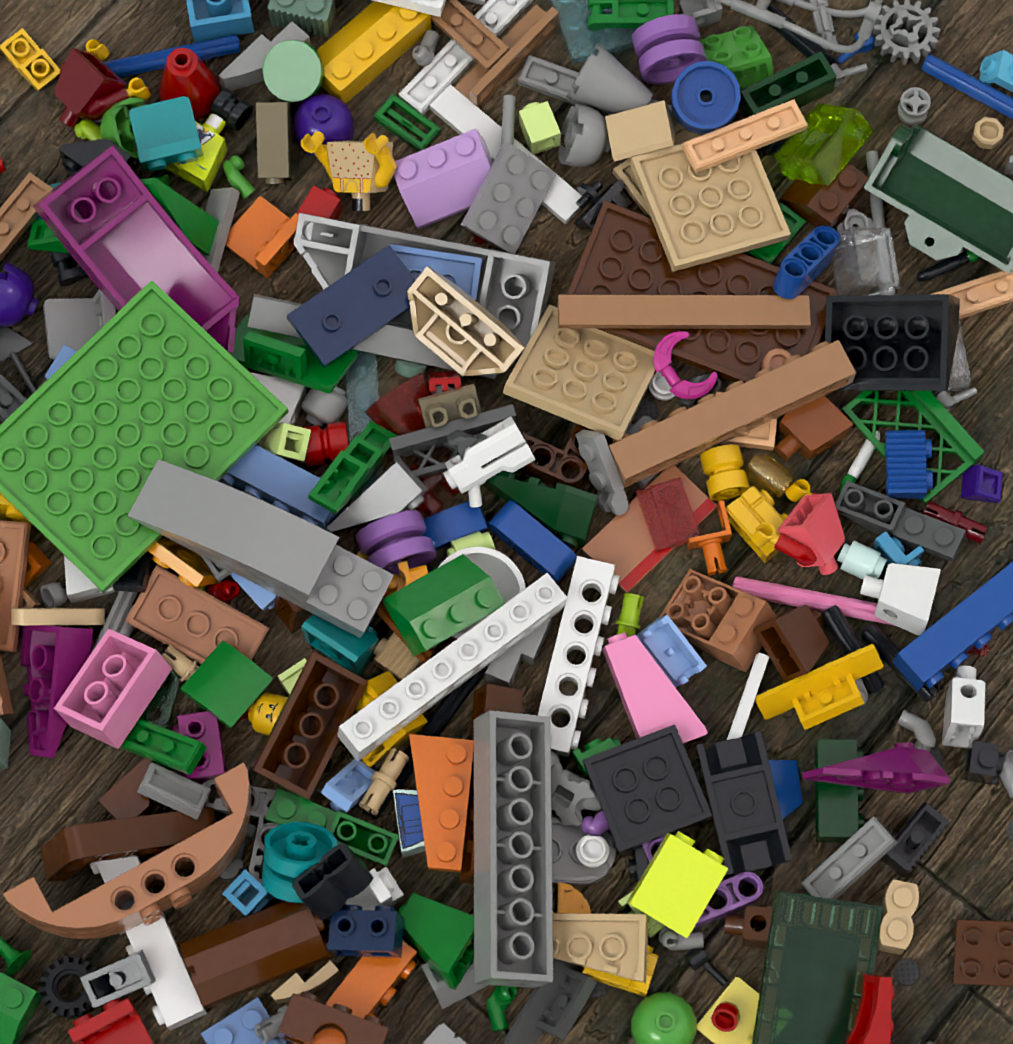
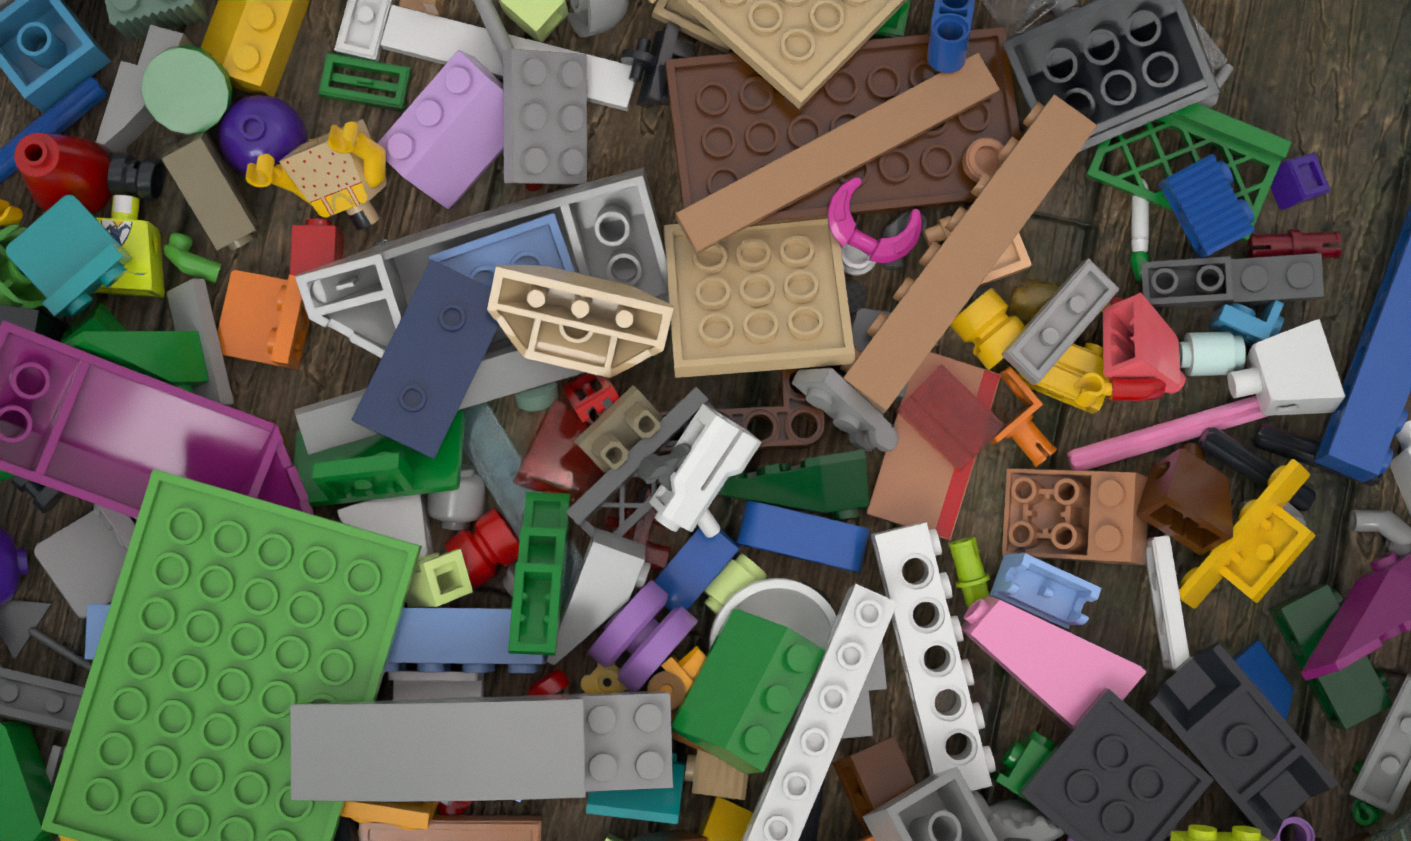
camera: 25 degrees left, 10 degrees up
(770, 486) = (1060, 322): none -> light grey tile
(812, 429) = (1066, 220): dark orange torso -> none

